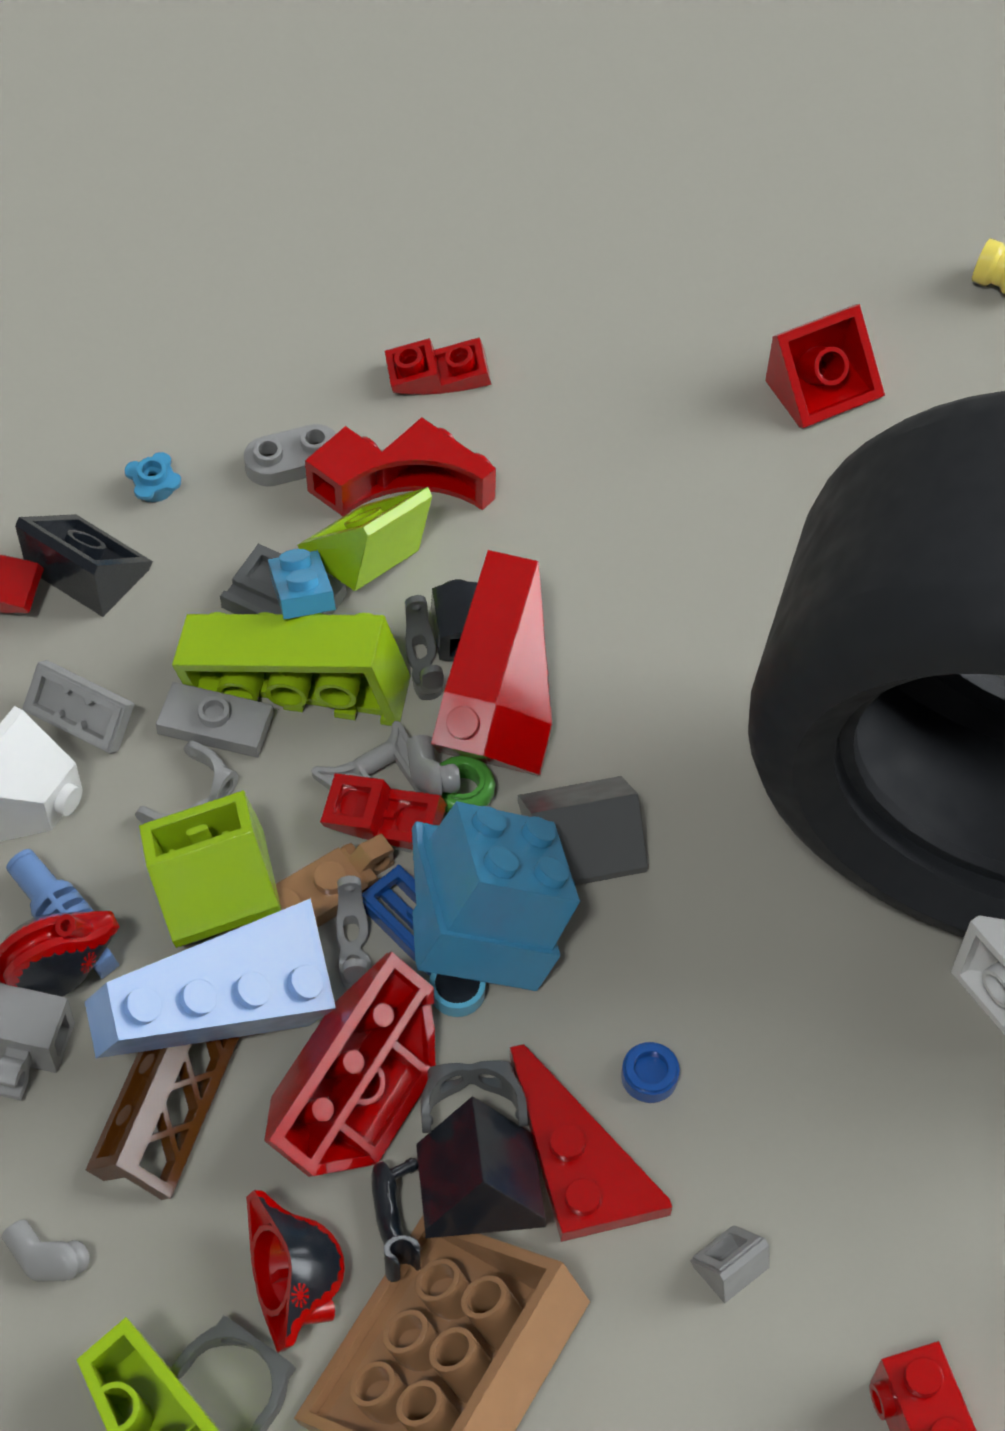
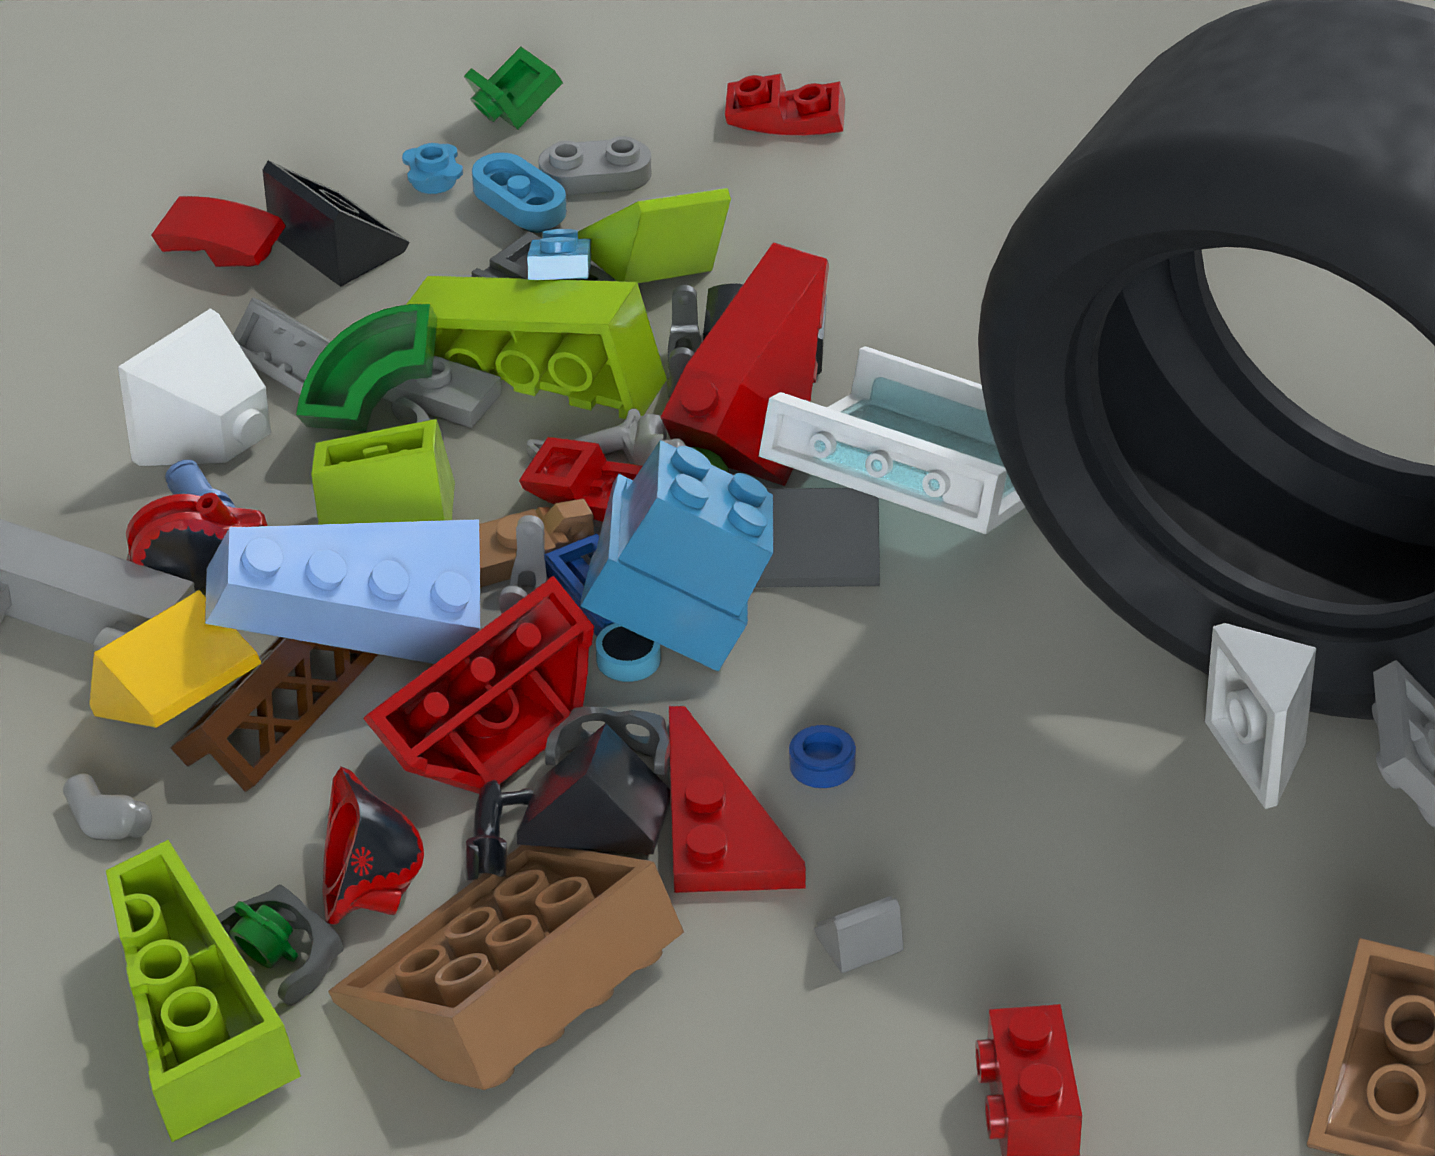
camera: 15 degrees right, 15 degrees down
(73, 1101) = (167, 665): none -> yellow slope
(160, 725) = (366, 364): none -> green brick
(204, 383) = (514, 88): none -> green bracket
(224, 1375) = (262, 935): none -> green plate
(239, 499) = (519, 191): none -> dark azure plate
(355, 470) = (758, 184): red arch -> none
(652, 734) = (901, 438): none -> white panel

